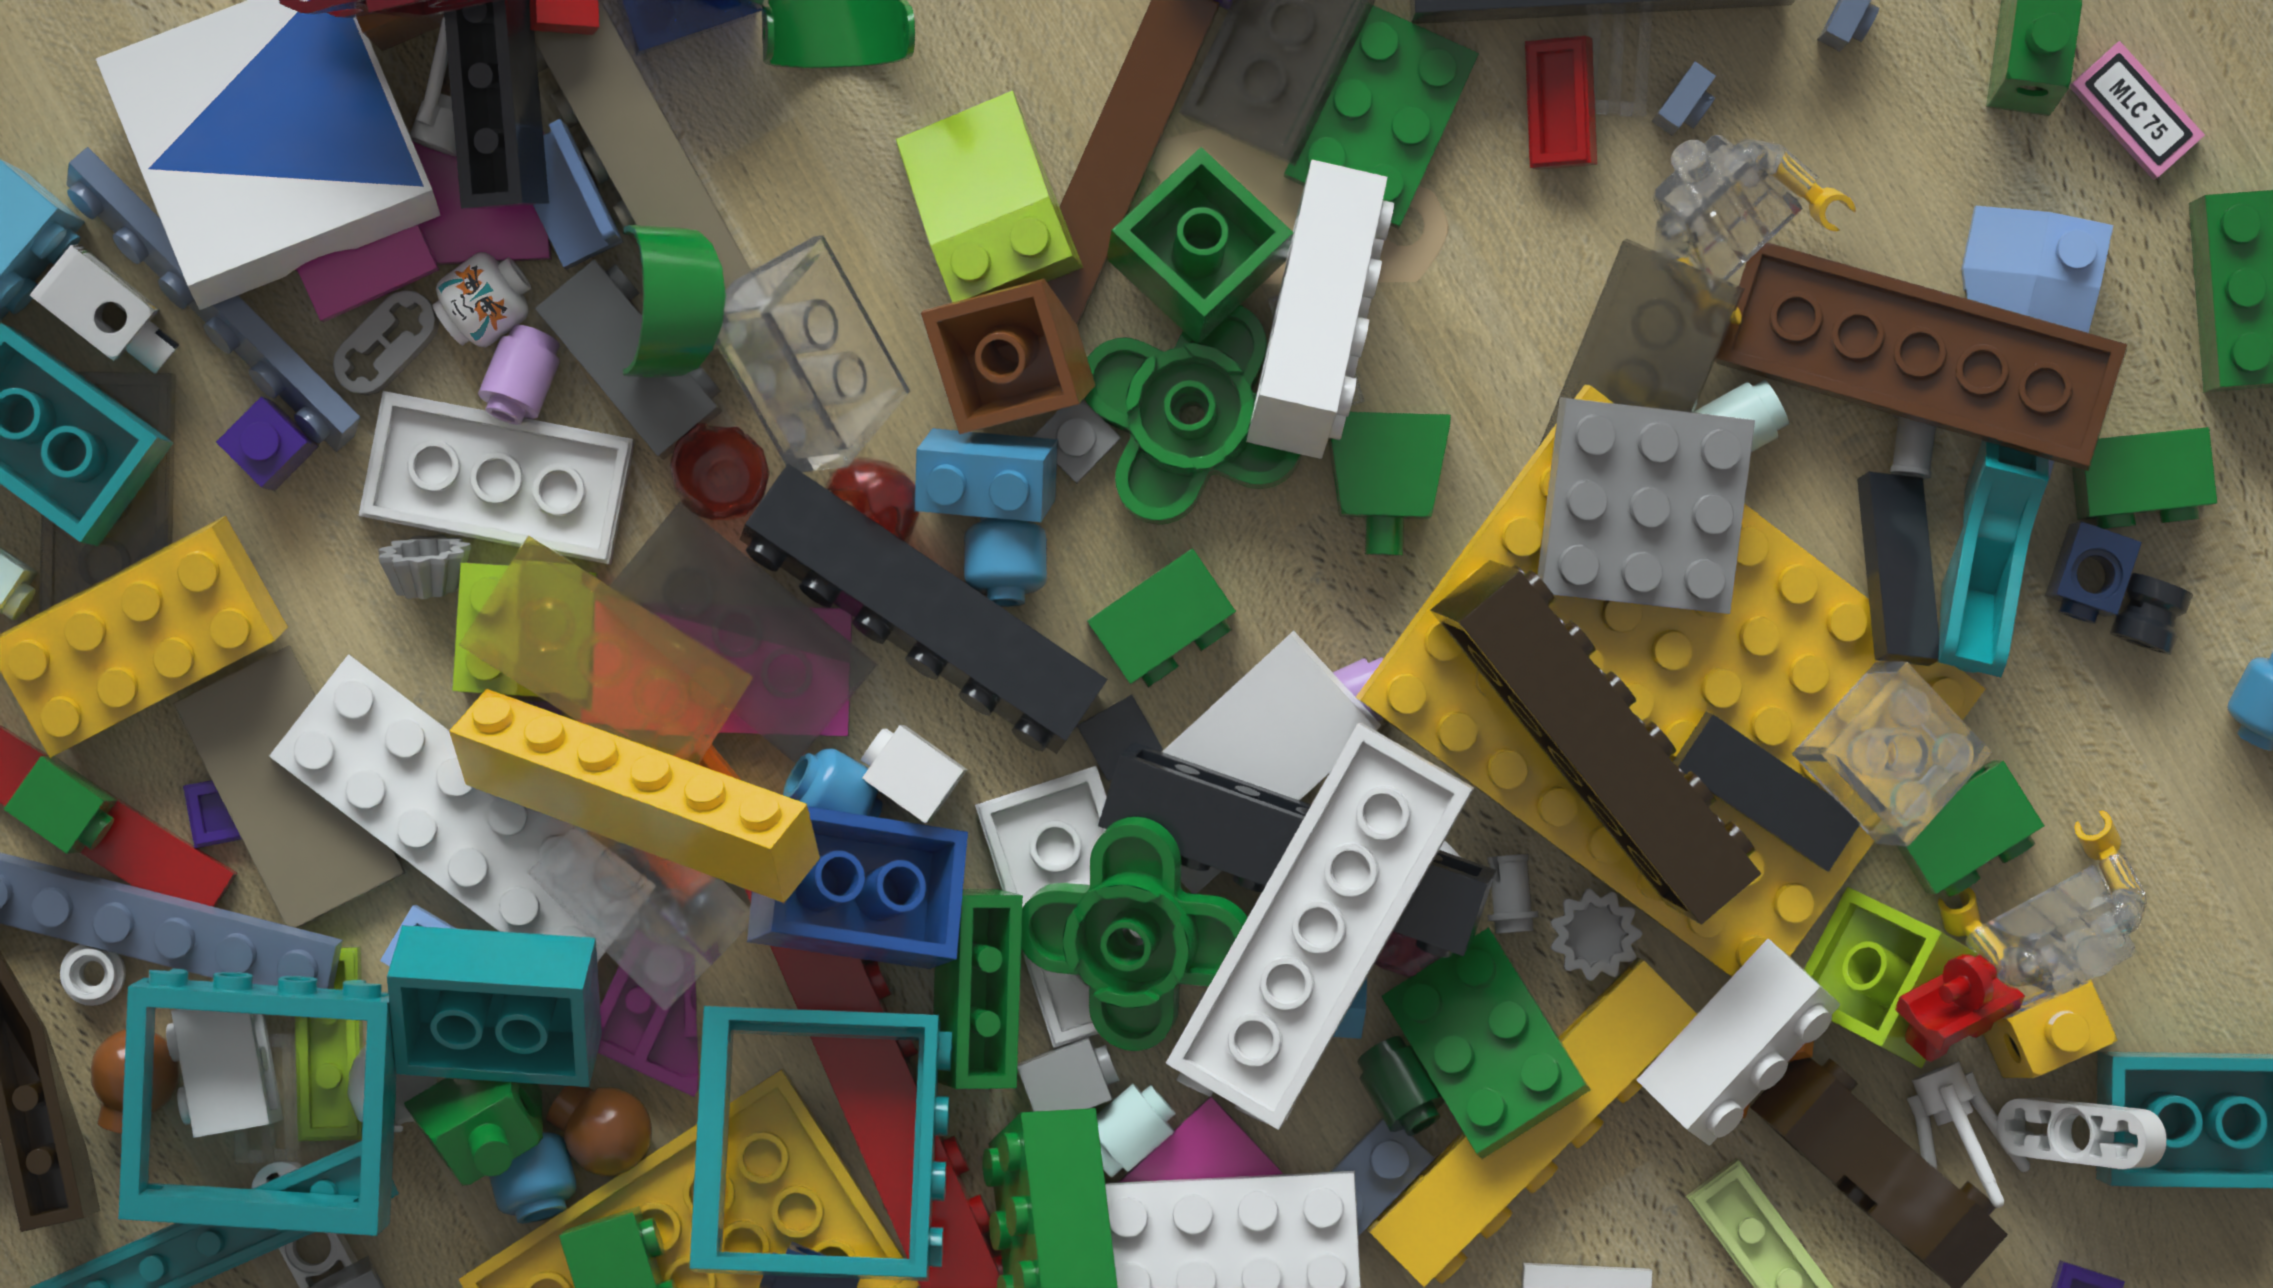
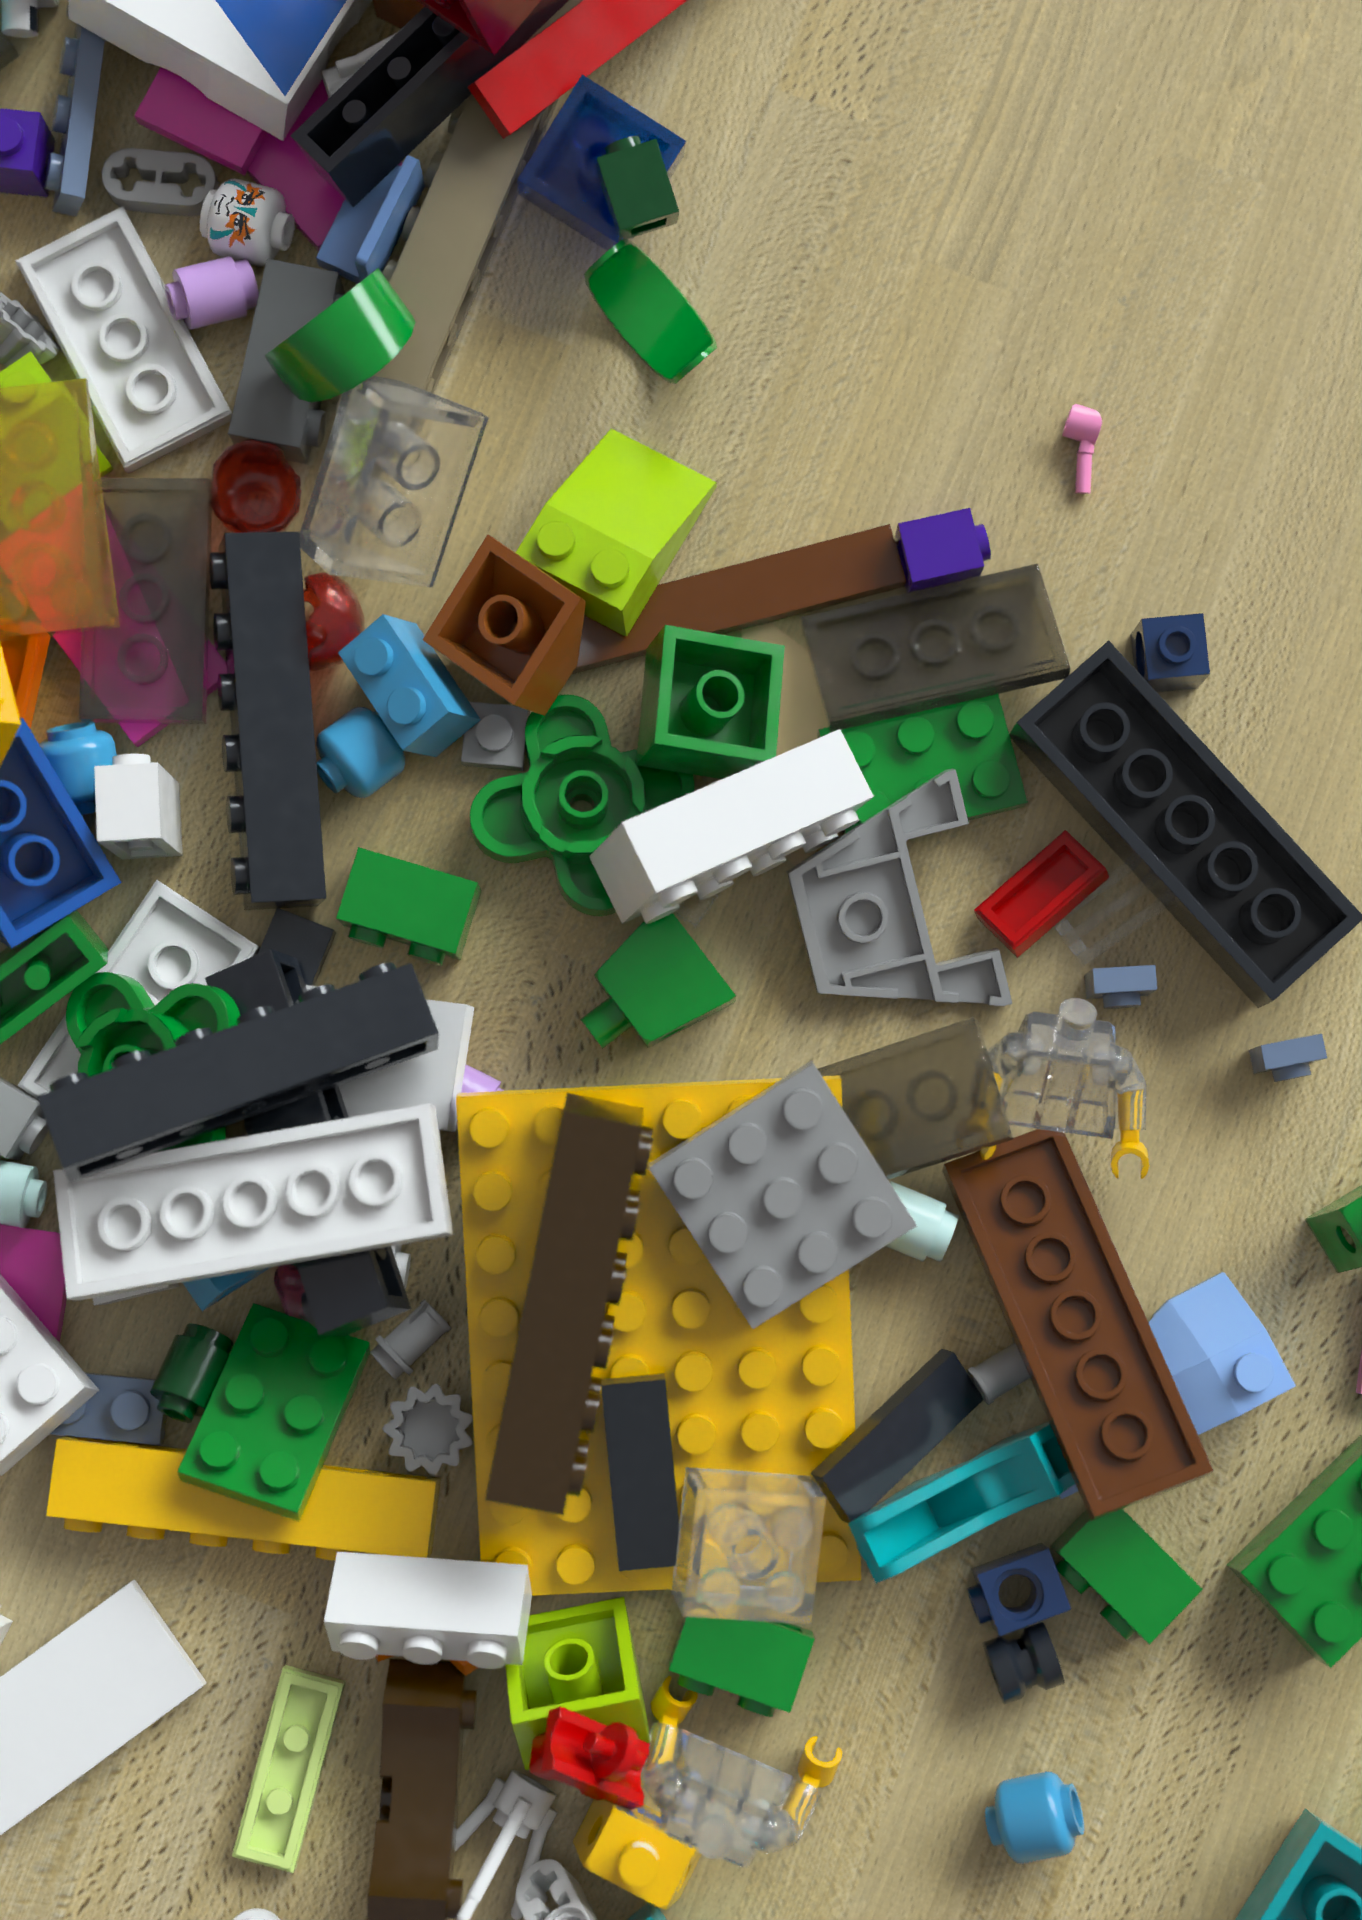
camera: 55 degrees right, 5 degrees down
(1208, 852) = (238, 1071): none -> black brick
(1465, 256) = (866, 913): none -> light grey wing

